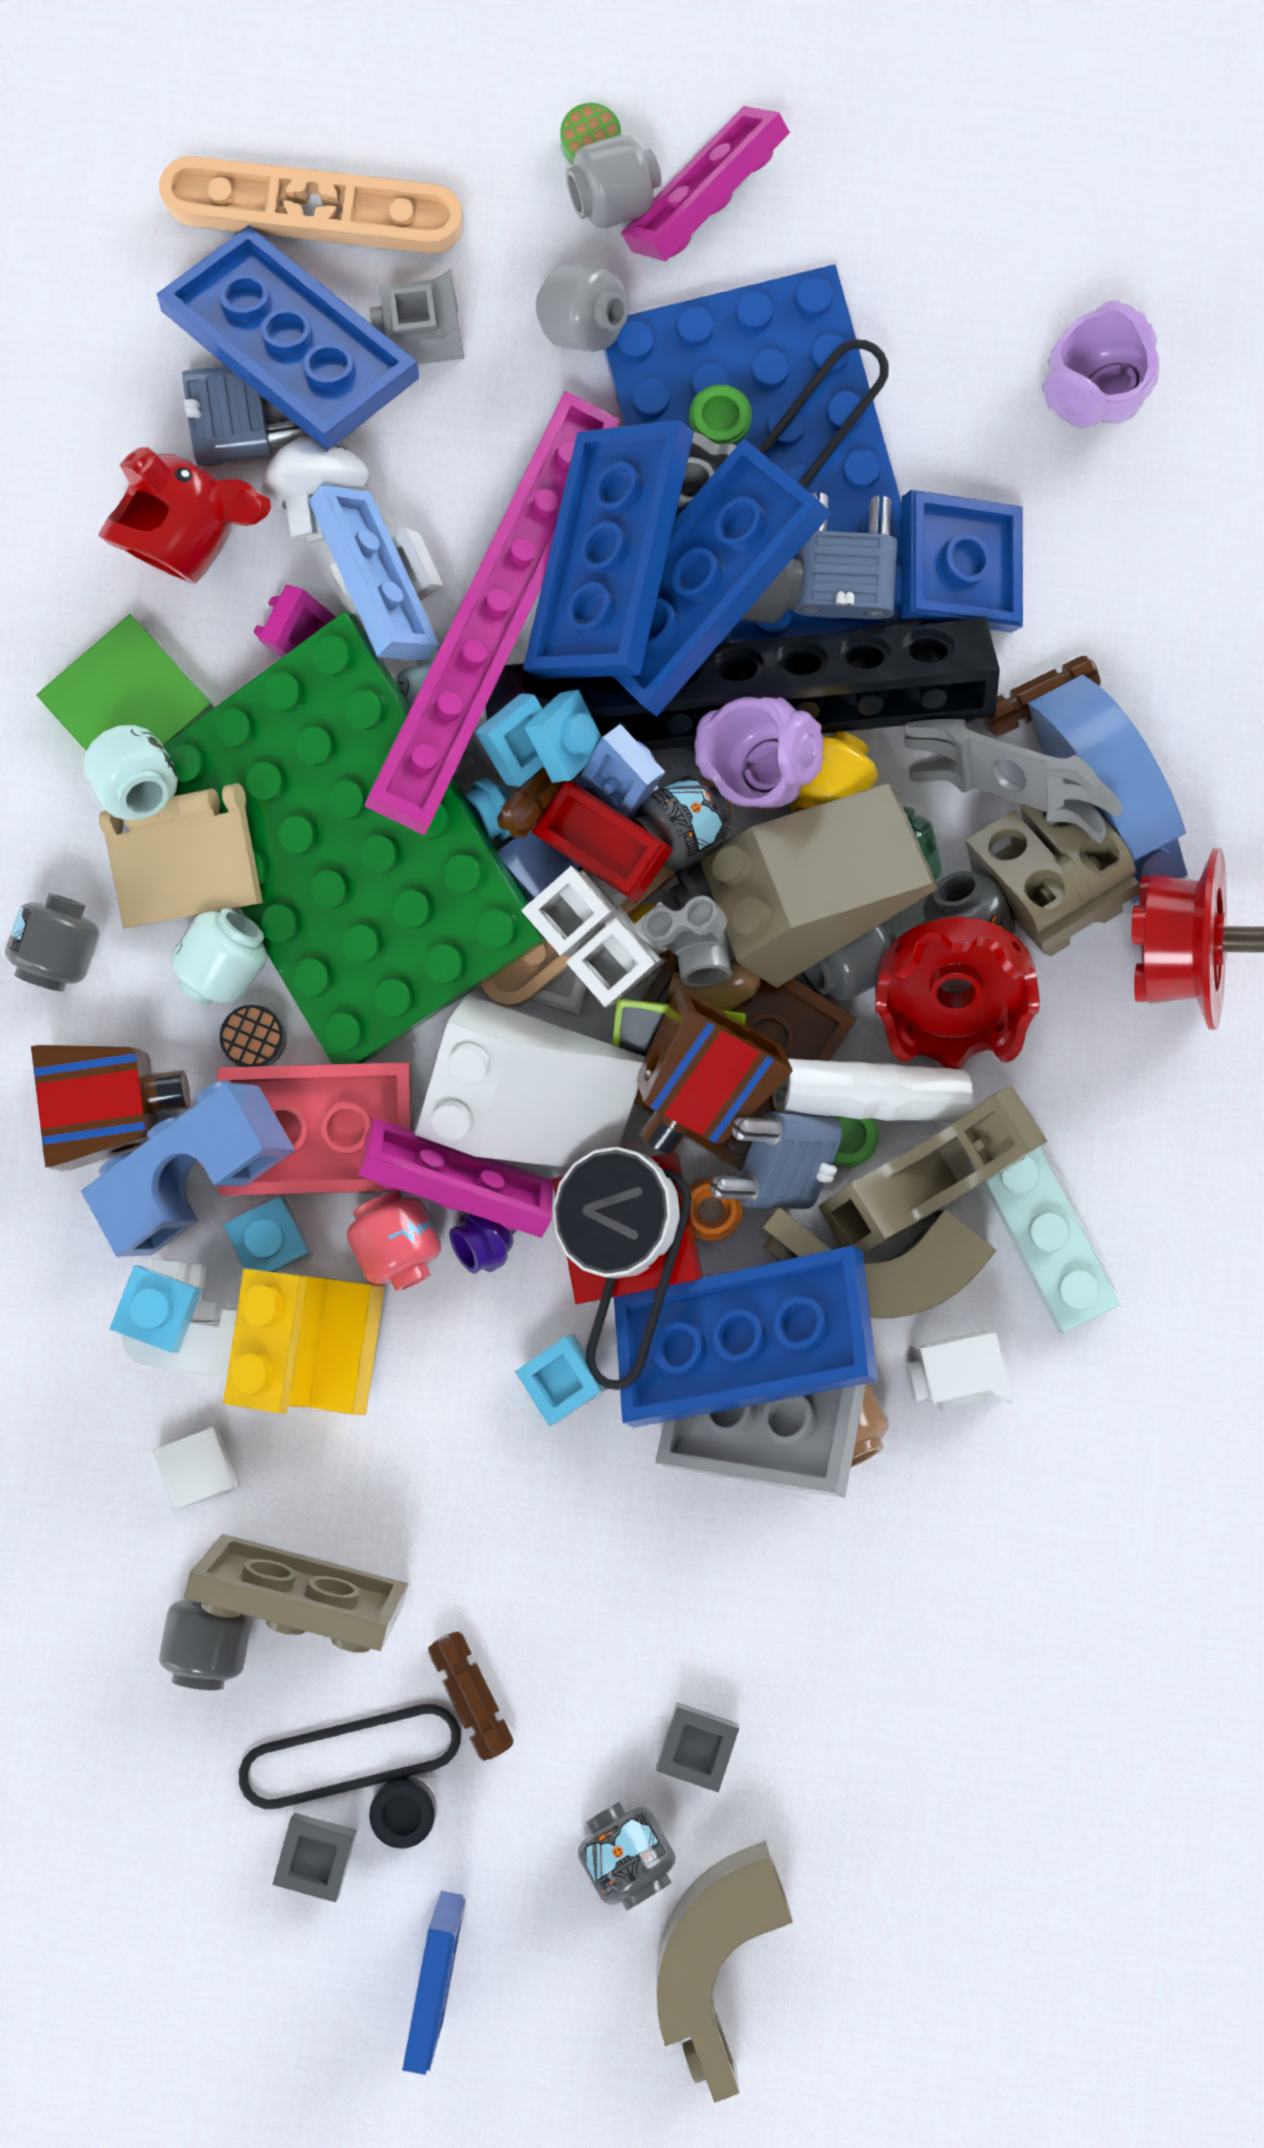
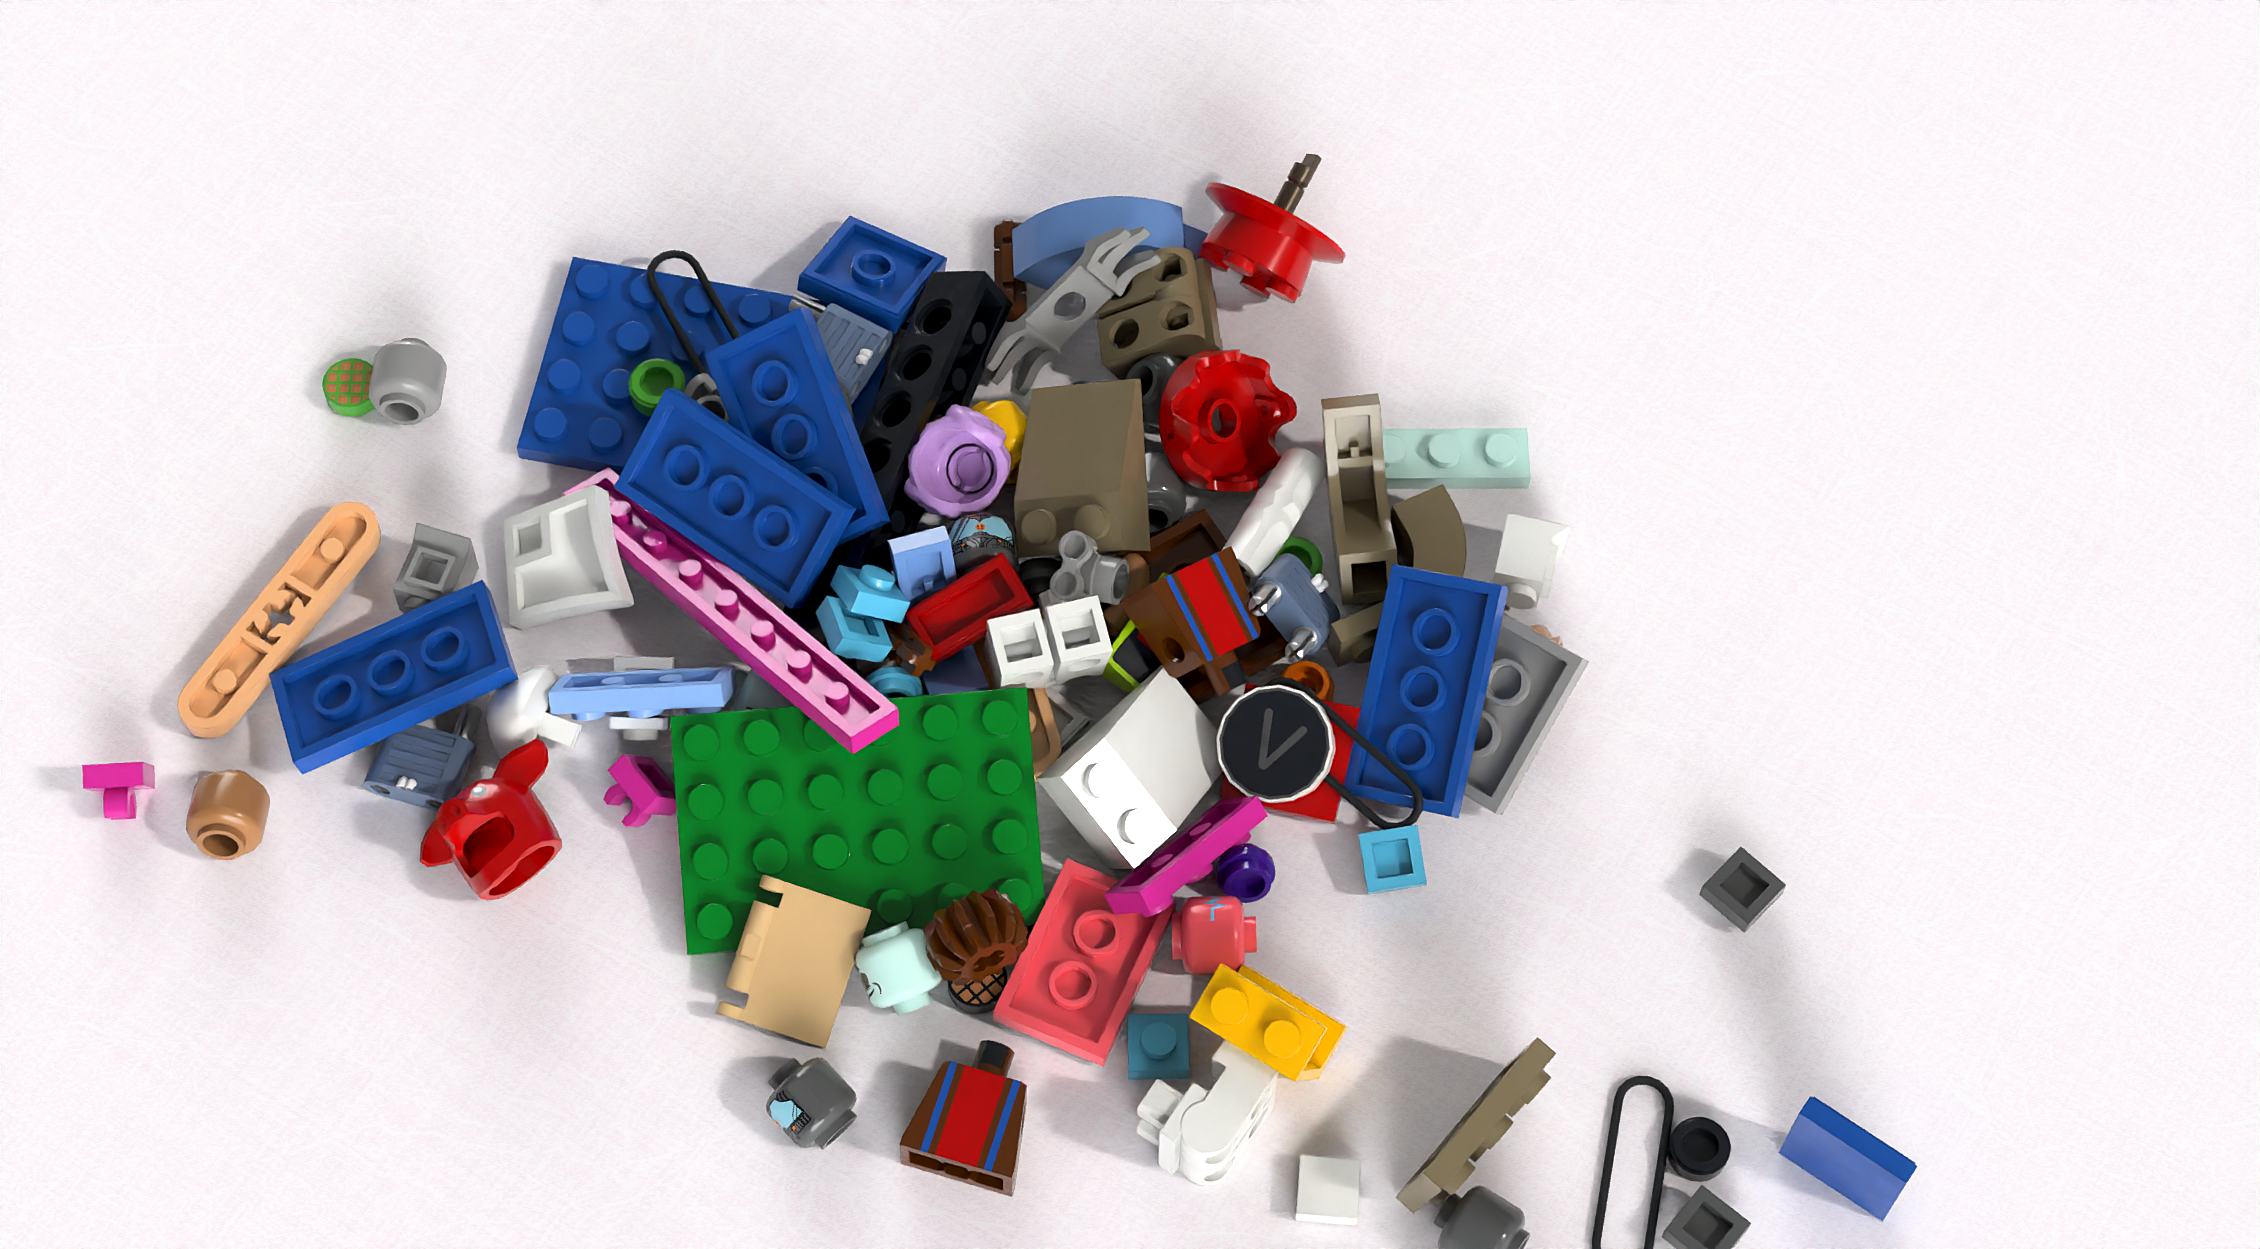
camera: 70 degrees left, 20 degrees down
(73, 154) = (118, 785): none -> dark pink tile
(89, 266) = (227, 814): none -> medium nougat head
(124, 683) = (627, 959): bright green tile -> none
(130, 772) = (704, 958): light aqua head -> none
(143, 1192) = (1057, 1009): medium blue arch -> none
(156, 1309) = (1188, 1105): medium azure plate -> none
(265, 1016) = (975, 937): none -> reddish brown gear
(470, 1695) = (1623, 1049): reddish brown axle -> none
(491, 429) = (563, 560): none -> white plate
(582, 307) = (502, 448): light grey head -> none
(626, 1855) = (1808, 979): head -> none
(706, 183) = (449, 316): dark pink plate -> none
(712, 1919) = (1908, 962): dark tan arch -> none
(1102, 366) = (774, 106): lavender hair -> none

